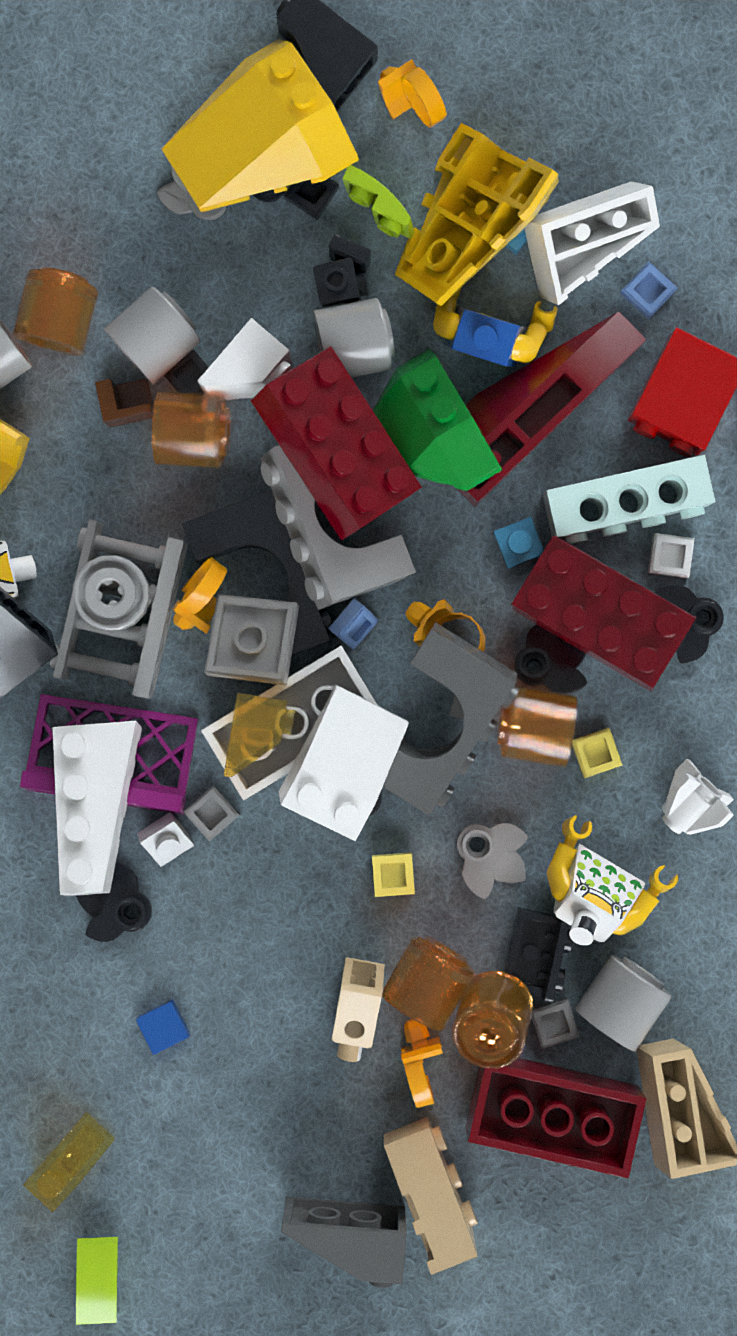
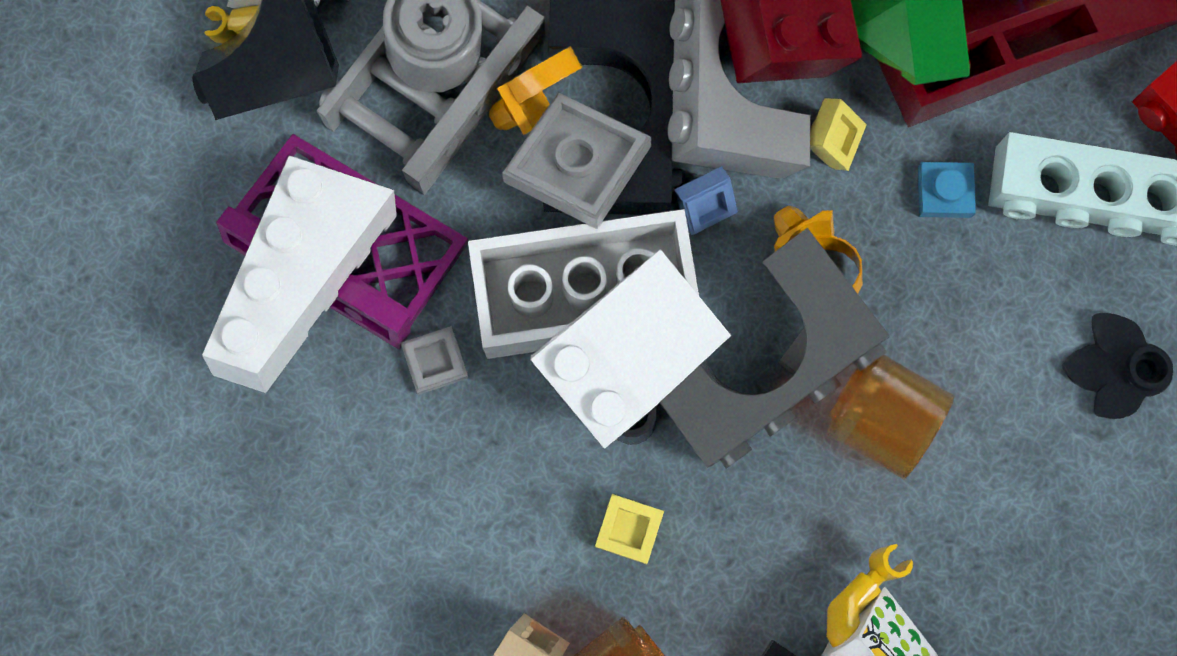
camera: 25 degrees right, 10 degrees down
(109, 908) = (259, 417): black plate -> none
(163, 1027) = (254, 603): blue tile -> none
(165, 839) = (363, 366): plate -> none
(256, 729) = (537, 261): clear yellow slope -> none
(425, 536) = (836, 134): none -> light yellow plate
(495, 860) = (766, 568): light grey plate -> none
(557, 662) = (941, 345): black plate -> none
(596, 752) = (947, 484): light yellow tile -> none
(602, 613) = (1025, 308): dark red brick -> none
(671, 555) = (1130, 280): white tile -> none
(695, 802) = (1053, 596): white brick -> none

